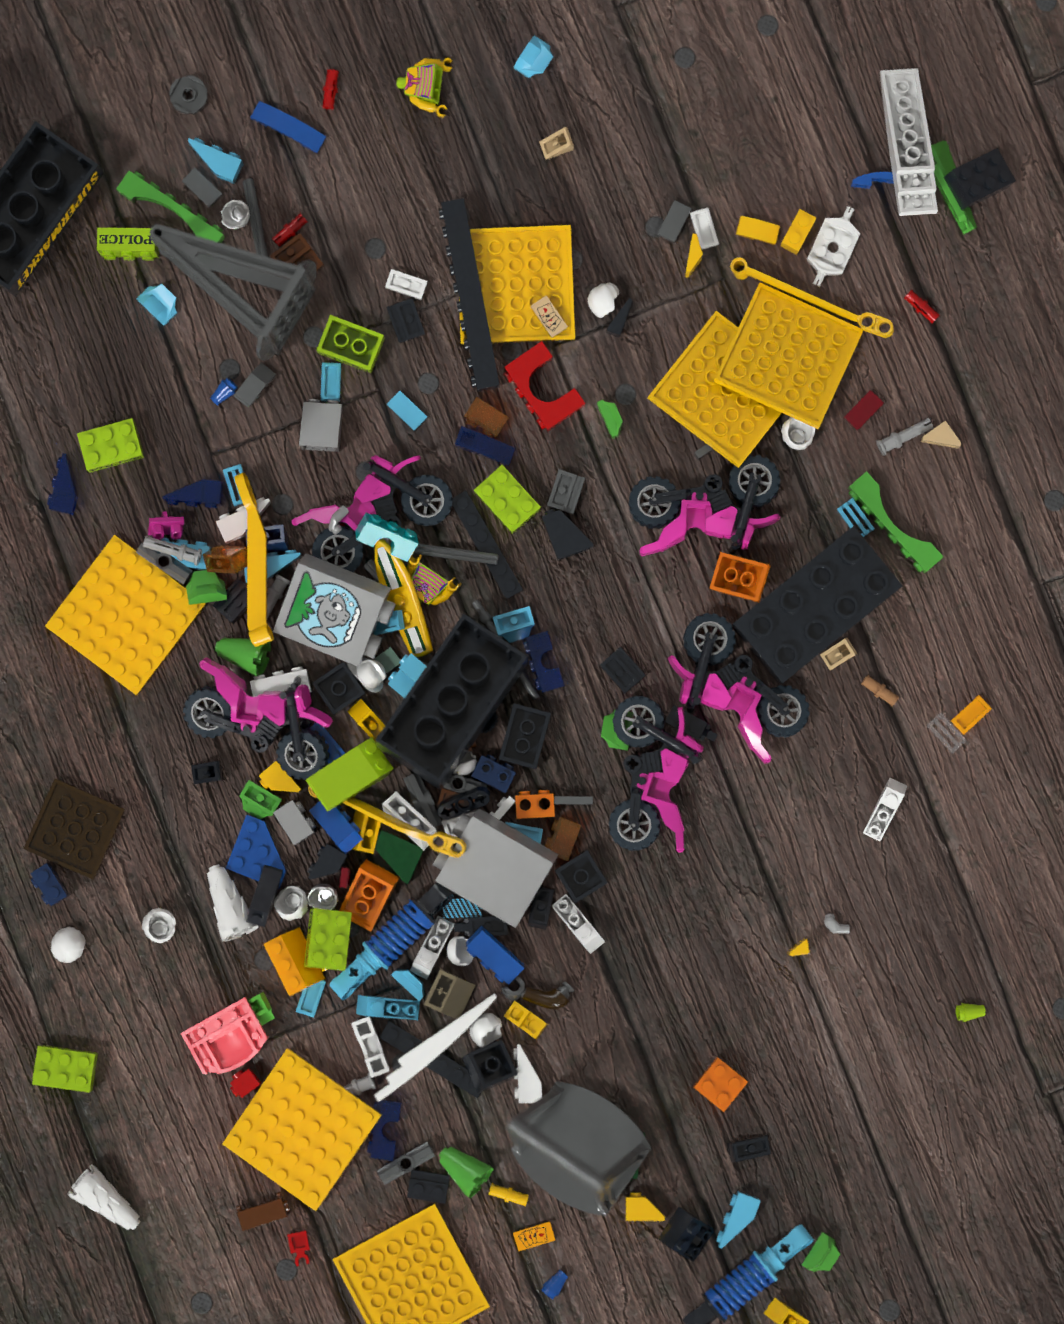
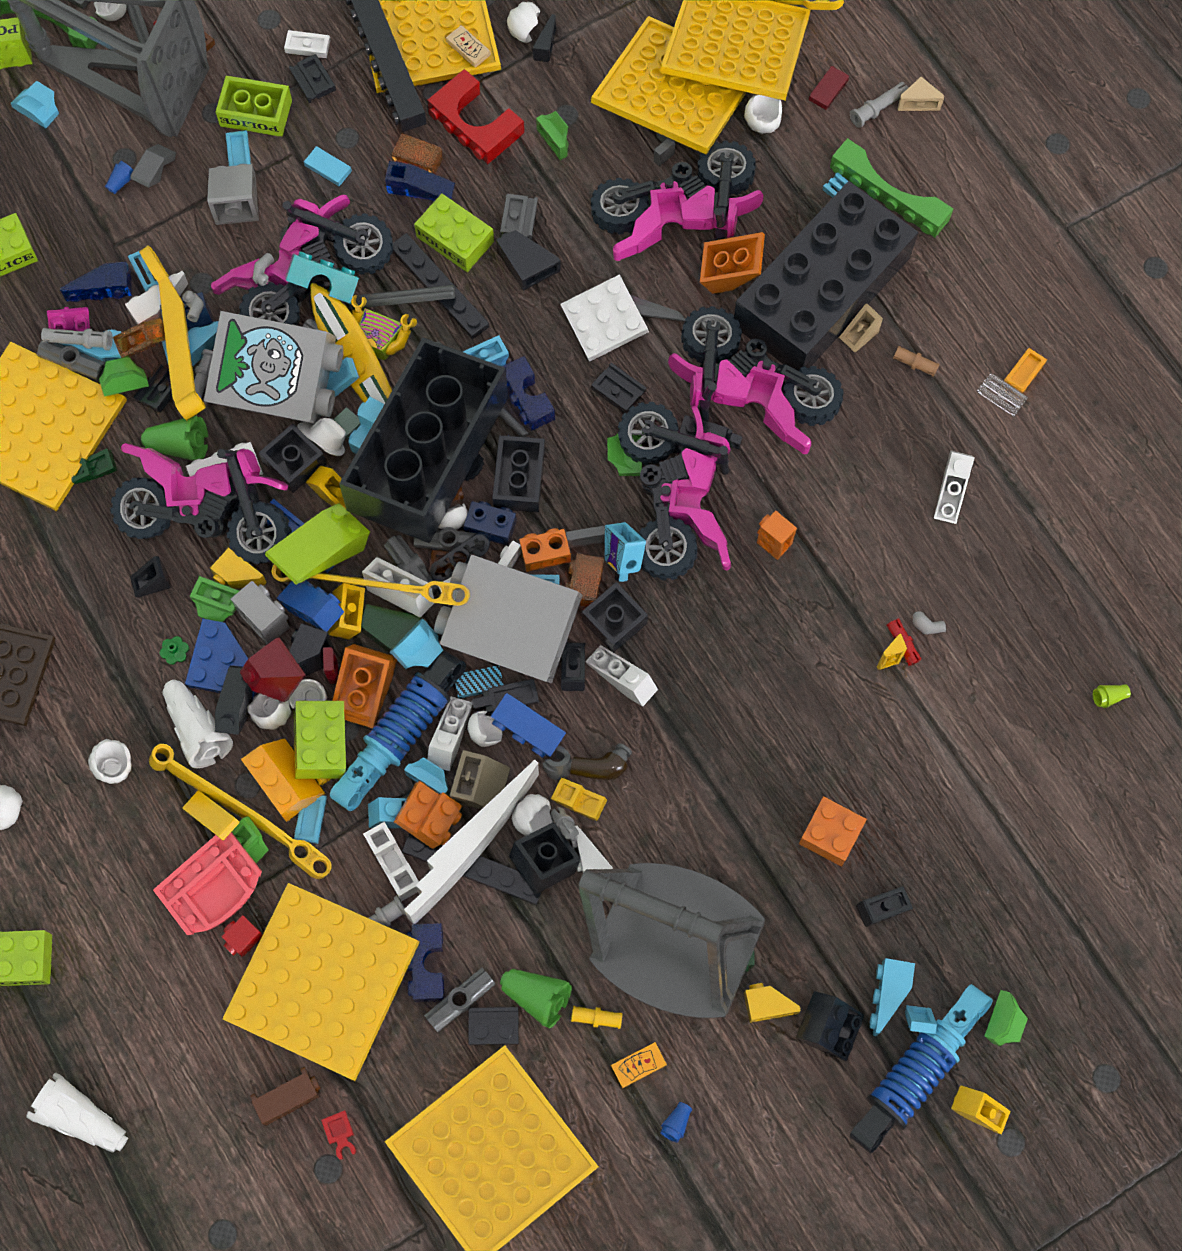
camera: 15 degrees left, 15 degrees down
(174, 662) = (95, 467): none -> dark green slope
(225, 835) = (174, 655): none -> green plant
(233, 984) = (210, 815): none -> yellow tile
(276, 539) = (194, 303): none -> light grey arm
(299, 881) = (273, 671): none -> dark red slope
(308, 1027) = (241, 810): none -> yellow piece
(404, 1016) = (428, 815): none -> orange plate
(417, 875) = (418, 646): none -> medium azure slope
(510, 1041) = (564, 823): none -> light grey axle
(598, 820) = (623, 550): none -> medium azure torso
(622, 602) = (604, 318): none -> white plate
(656, 597) = (654, 310): none -> dark grey bar
(726, 829) = (776, 534): none -> orange brick
(755, 1243) = (920, 1019): none -> medium azure tile
(812, 937) = (911, 655): none -> red pin

